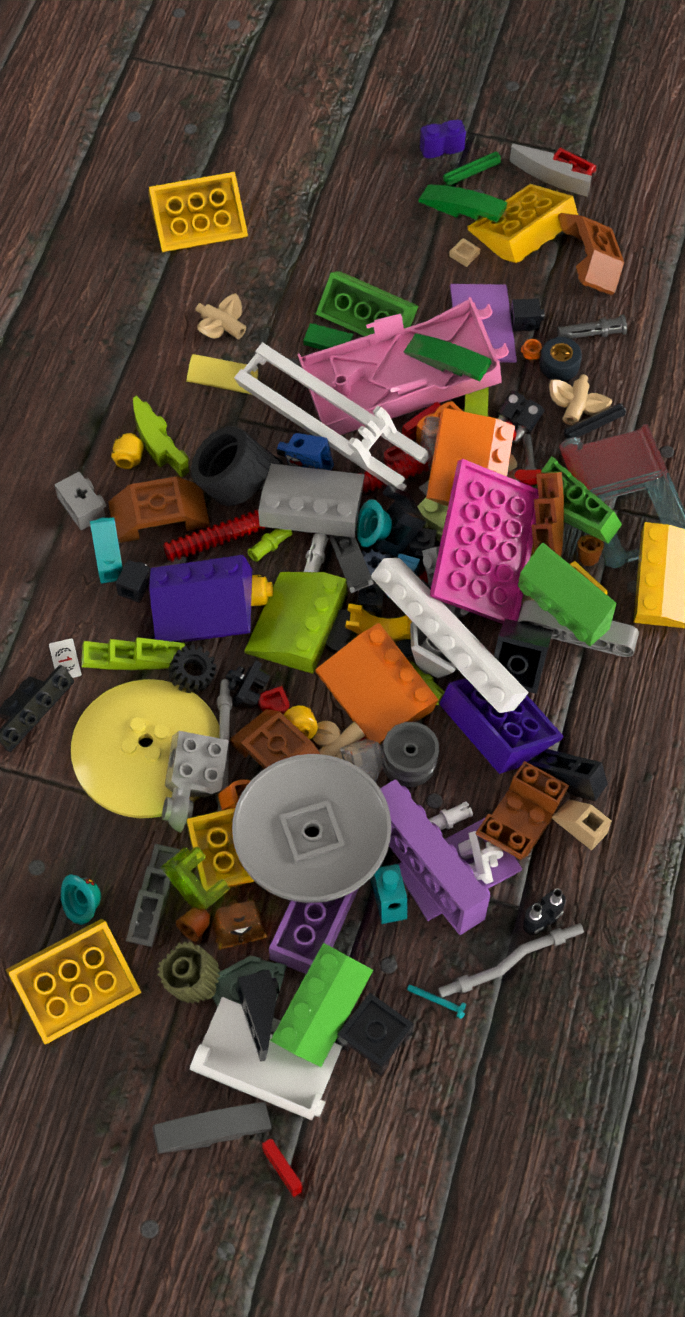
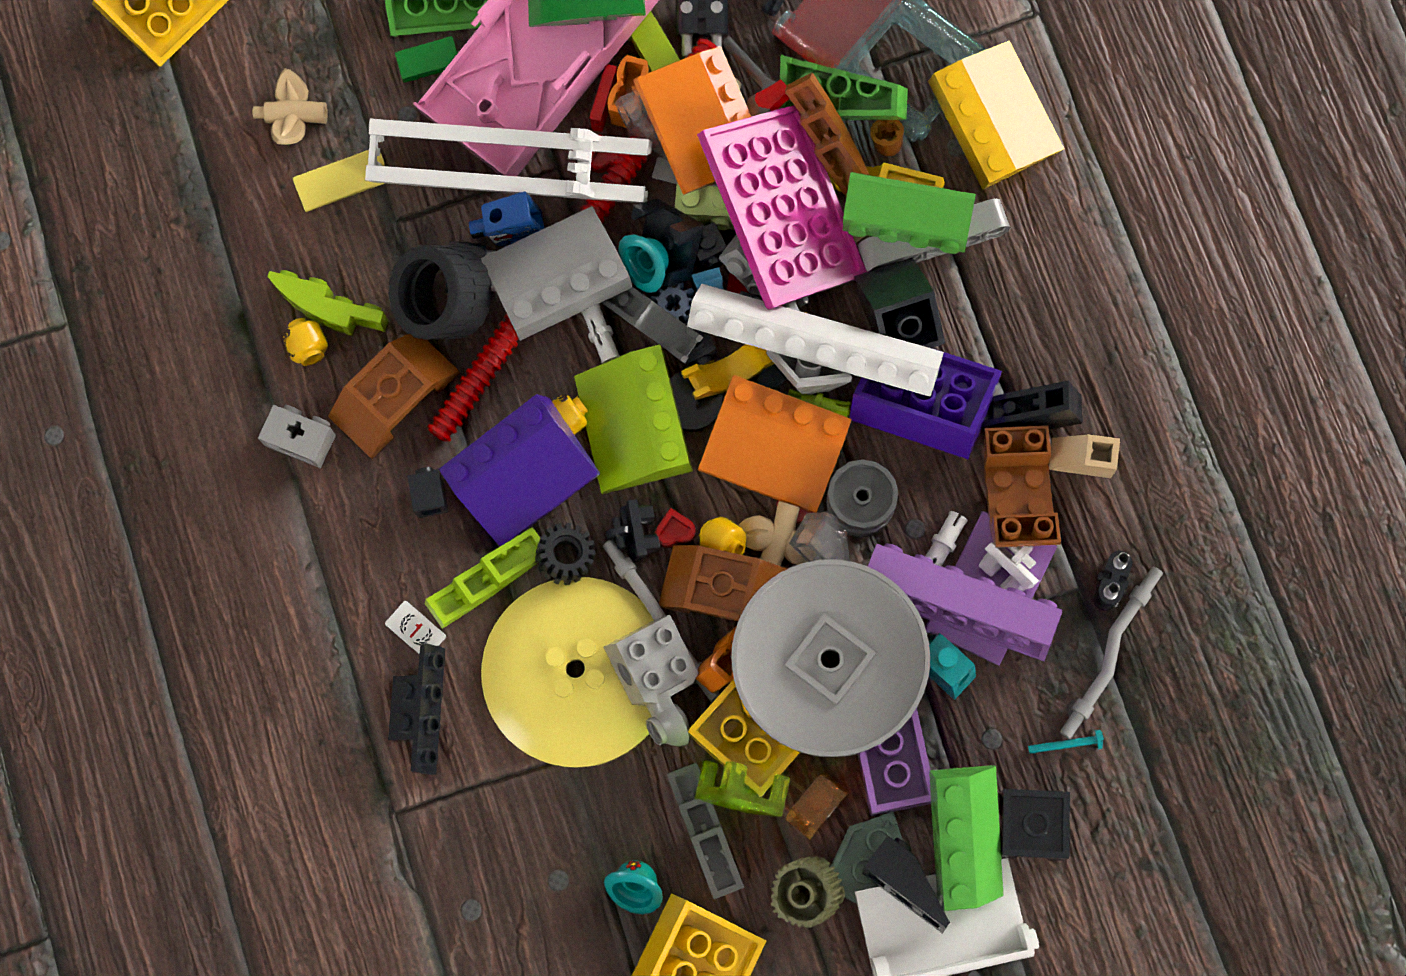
camera: 25 degrees left, 15 degrees up
(106, 549) = (377, 480): teal slope -> none
(193, 923) = (768, 833): dark orange hat -> none
(268, 543) = (538, 351): lime pin -> none

